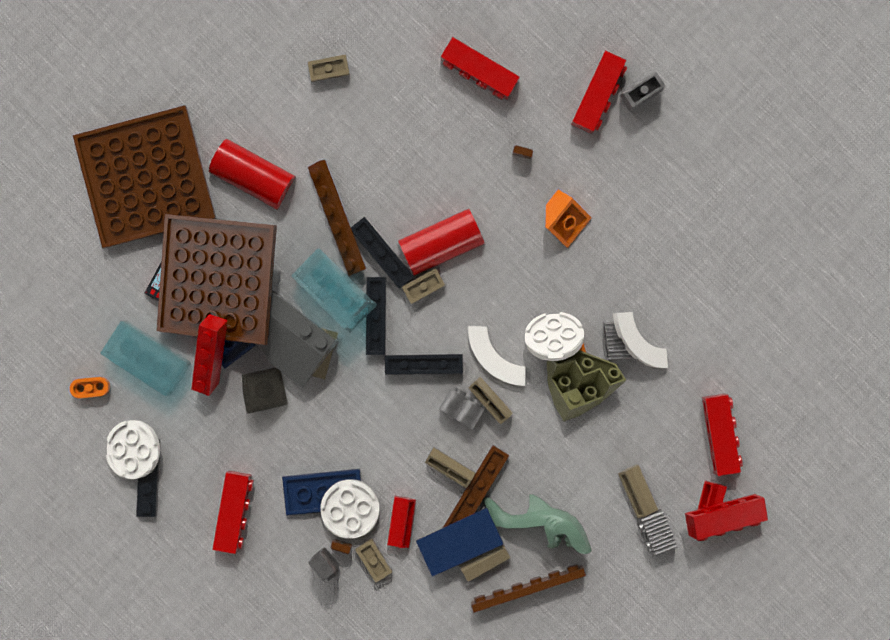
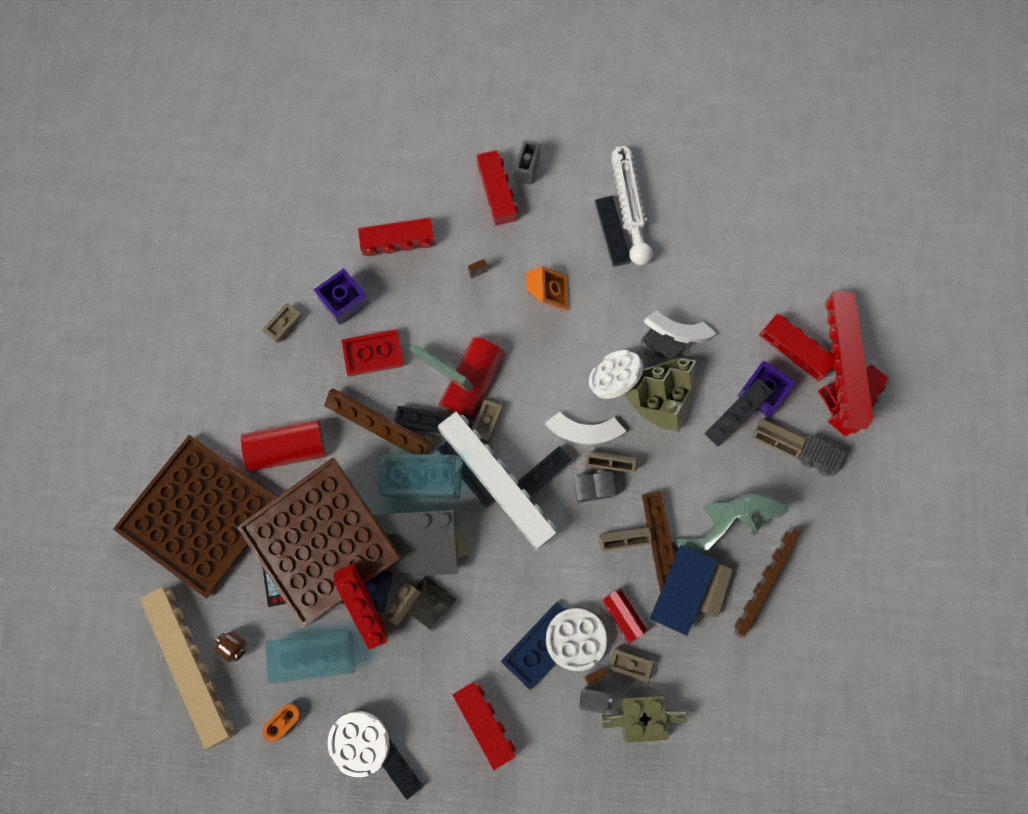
camera: 40 degrees left, 15 degrees down
(51, 289) = (186, 667): none -> tan brick
(94, 301) = (230, 646): none -> reddish brown head
(243, 374) = (401, 604): none -> dark tan plate
(352, 617) = (657, 722): none -> olive brick
(380, 154) = (372, 353): none -> red plate
(389, 342) = (497, 481): none -> white brick
(392, 86) = (341, 296): none -> dark purple brick
(421, 215) = (441, 367): none -> sand green tile
(623, 447) = (738, 412): none -> black plate
(662, 210) = (612, 231): none -> black plate
(663, 446) = (776, 381): none -> dark purple brick
(666, 250) = (630, 202): none -> white gear
(747, 480) = (849, 361): none -> red brick

